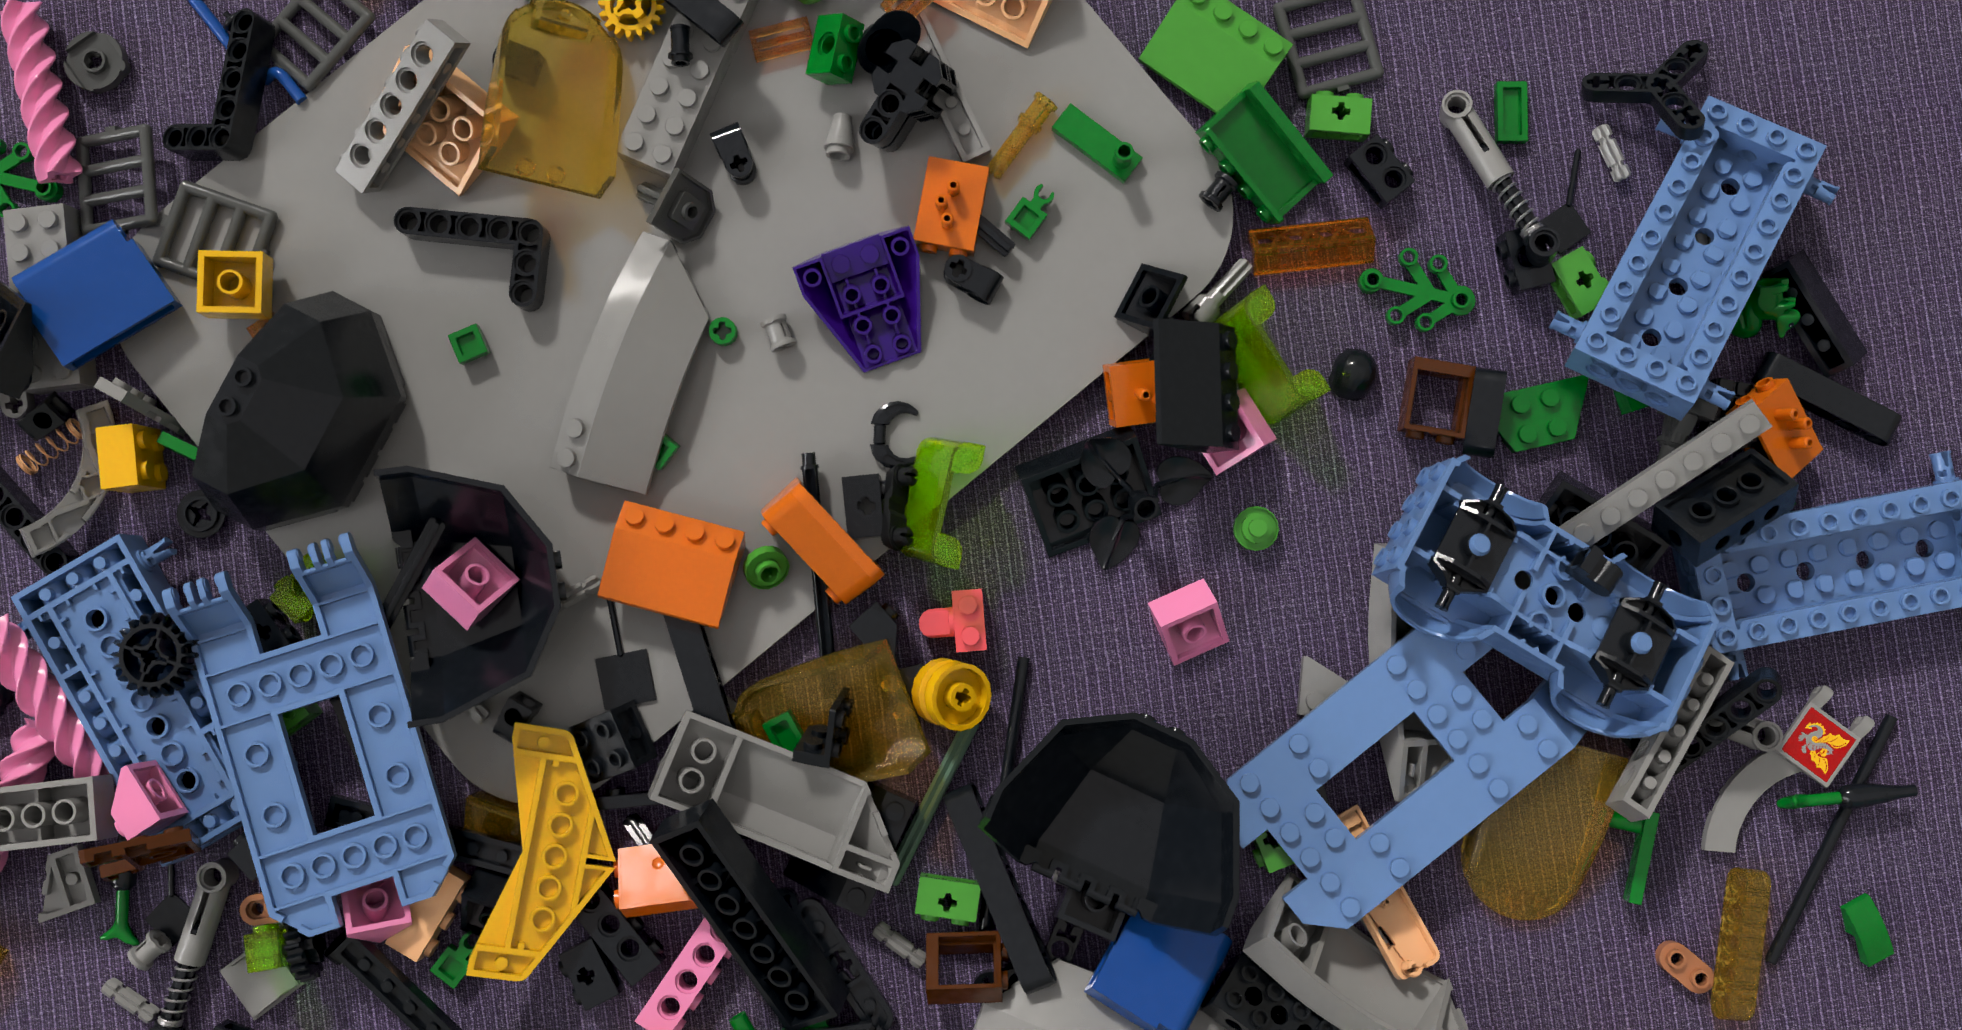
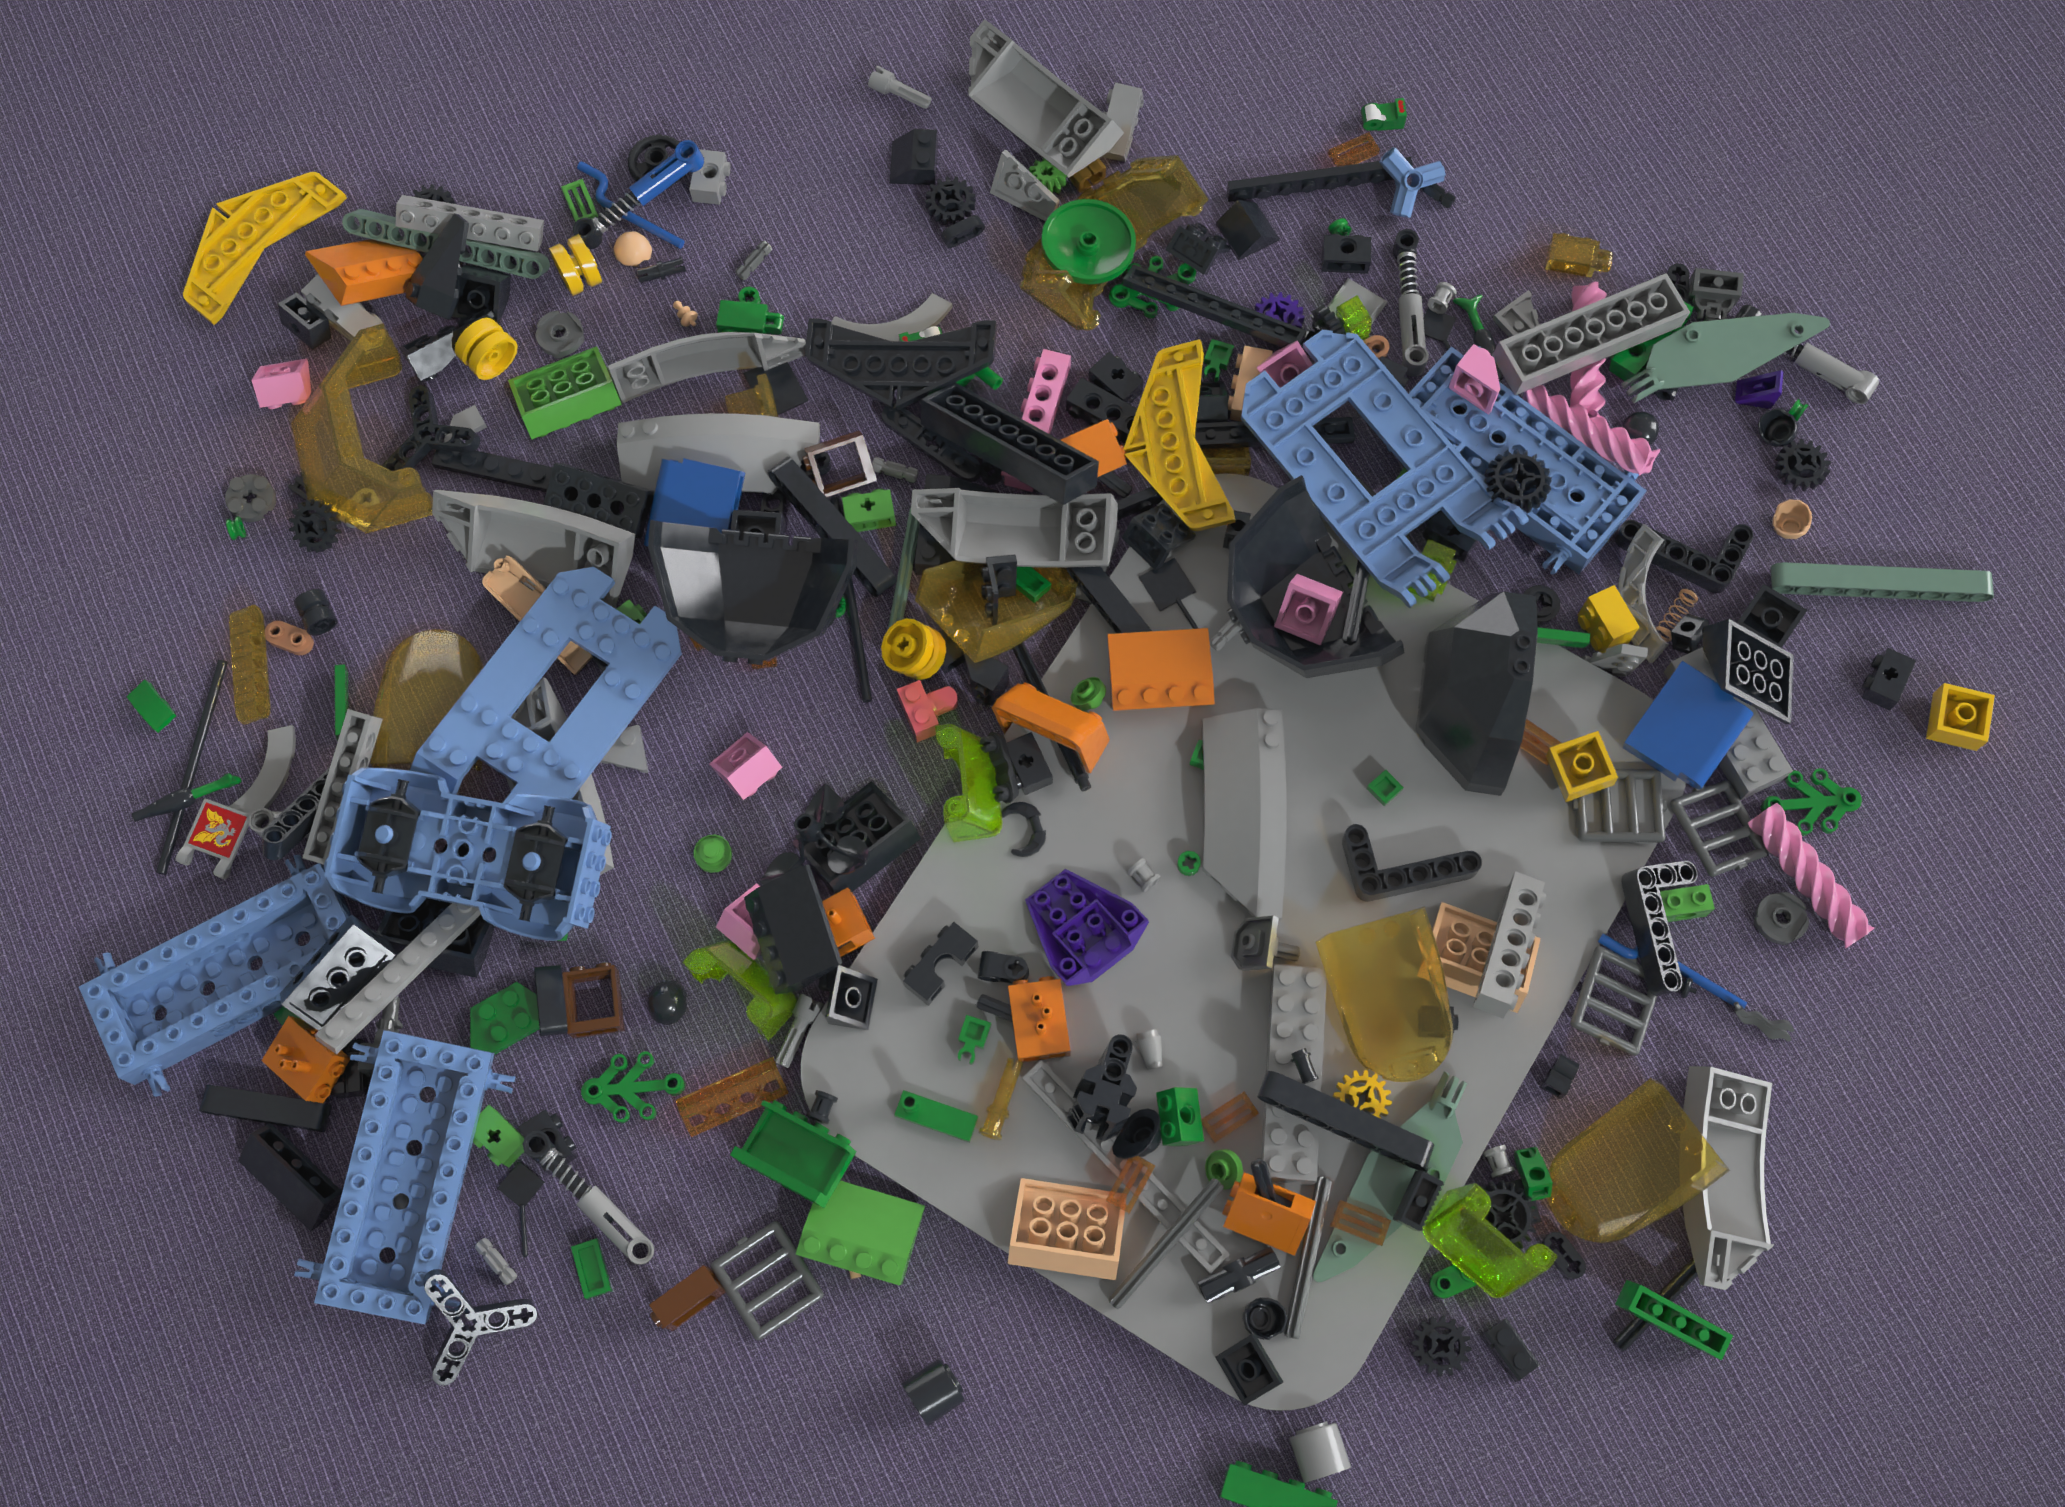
camera: 160 degrees right, 15 degrees down
(130, 1000) = (1441, 263): light grey axle -> none
(140, 851) = (1443, 358): reddish brown wing -> none
(186, 106) = (1687, 902): none -> bright green brick
(352, 1002) = (1281, 309): none -> dark purple gear
(734, 151) = (1236, 1010): black piece -> none
(1018, 323) = (952, 944): none -> black arch
(1324, 123) = (725, 1207): bright green brick -> none
(1372, 175) = (694, 1171): black brick -> none
(1421, 37) = (686, 1299): none -> reddish brown window
(1594, 571) = (434, 876): black leg -> none
(1648, 987) = (315, 612): none -> black wheel
(1767, 304) = (331, 1166): green animal -> none

